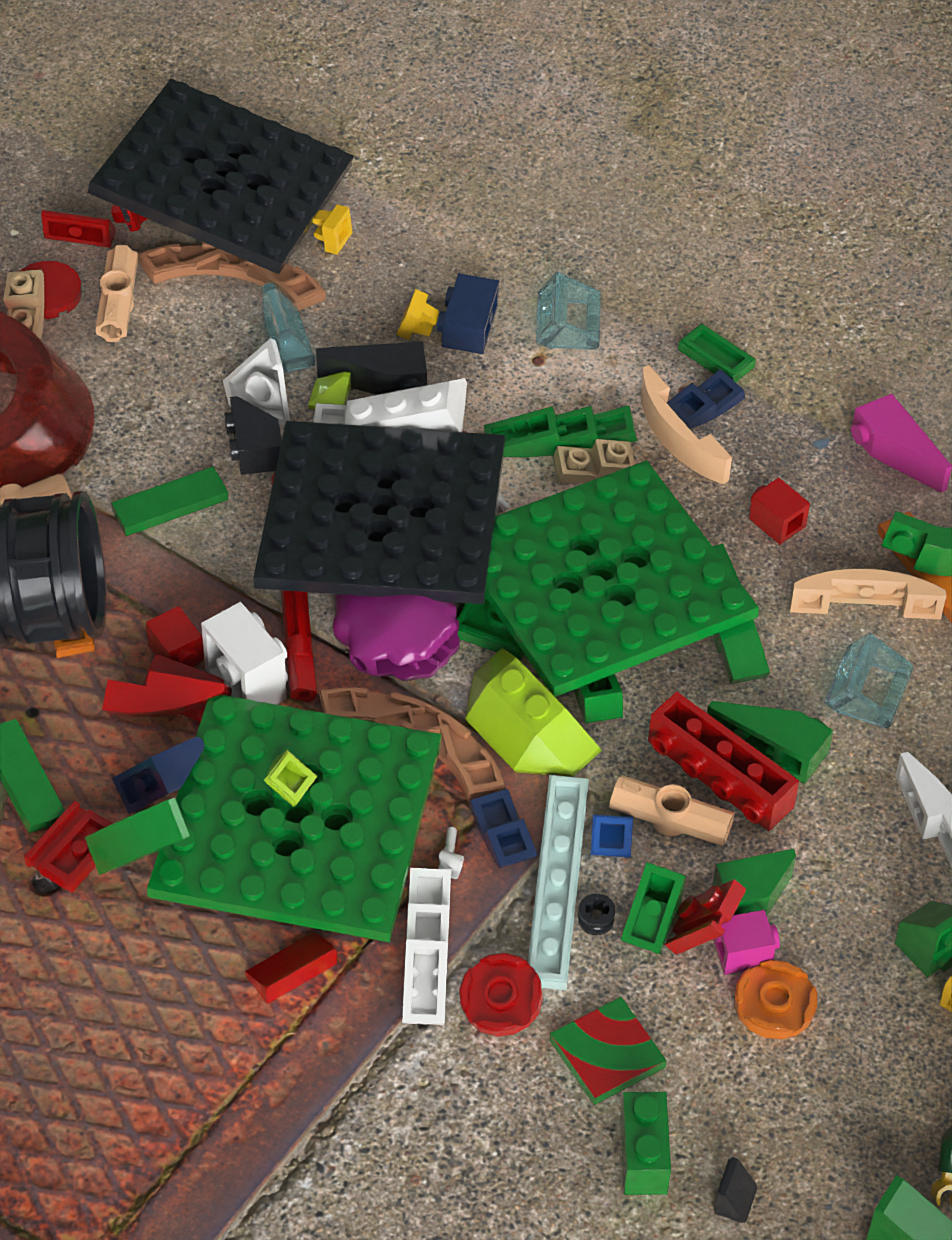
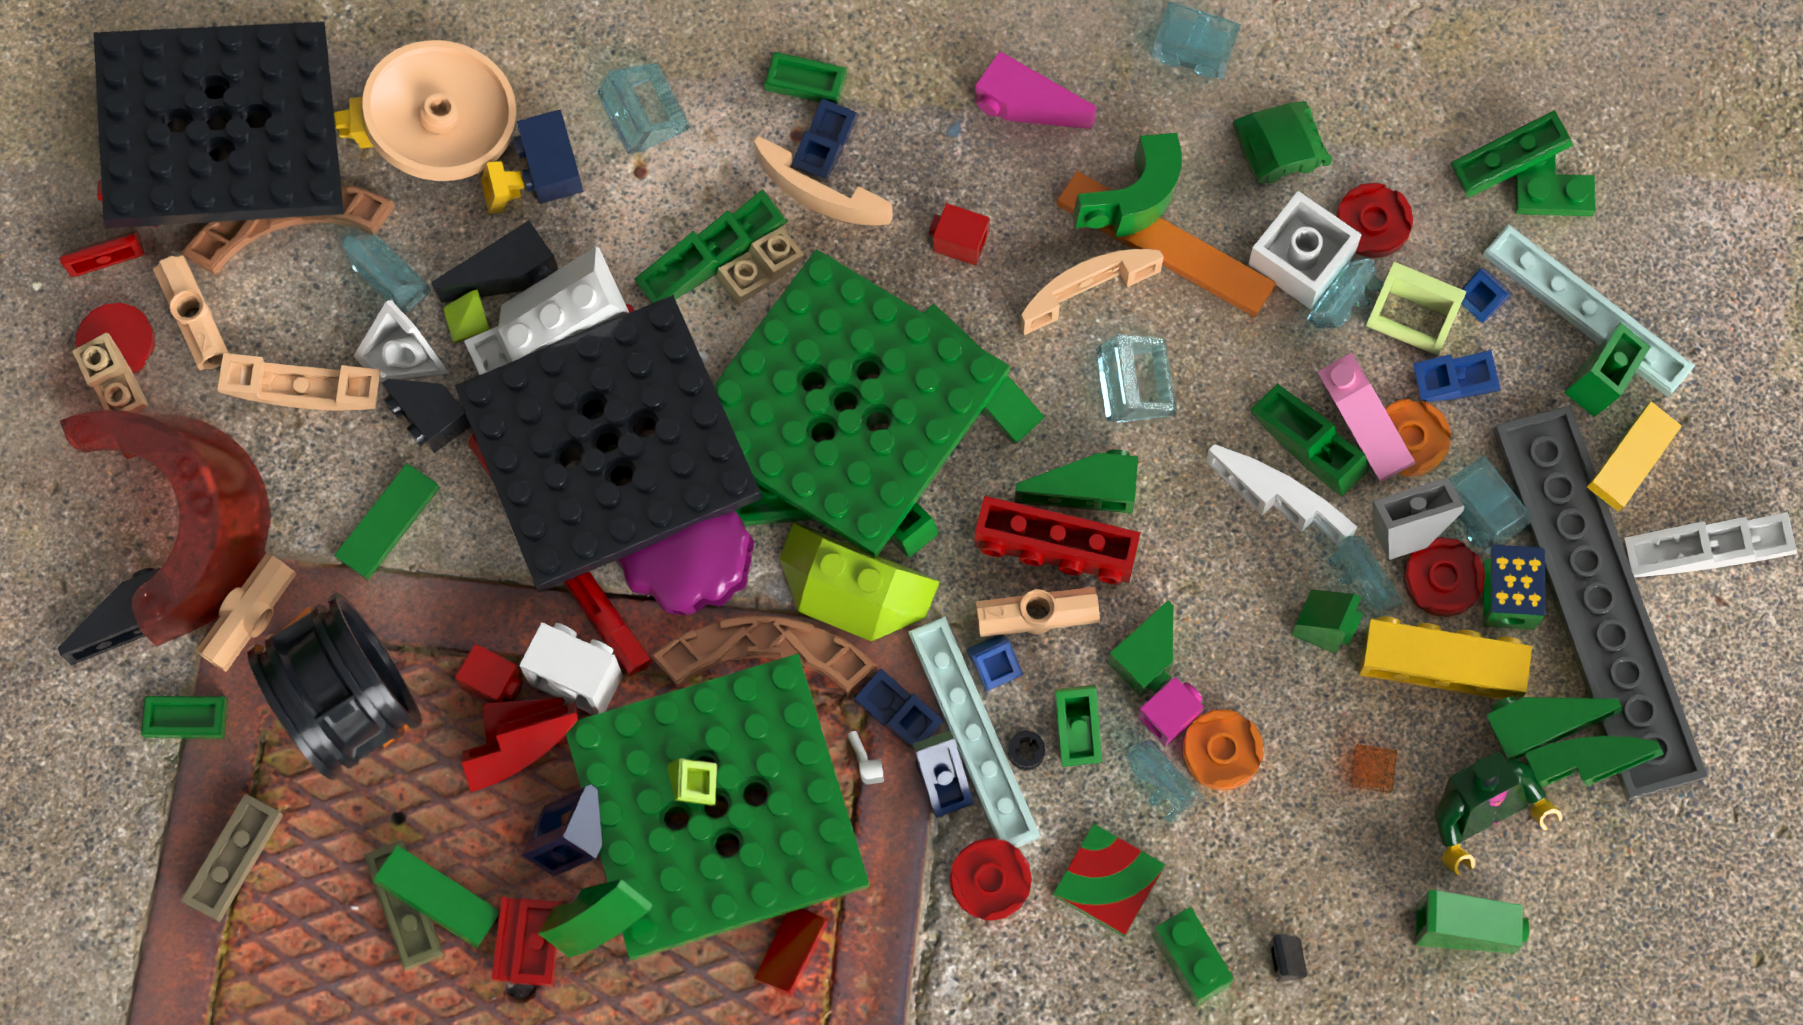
camera: 25 degrees left, 20 degrees up
(161, 378) = (298, 385): none -> light nougat slope
(401, 242) = (438, 110): none -> light nougat dish
(427, 946) = (900, 867): white slope -> none
(509, 889) = (942, 773): none -> slope
(703, 915) = (1129, 710): red plate -> none
(710, 999) = (1155, 768): none -> clear light blue plate
(908, 1081) = (1373, 768): none -> clear orange plate

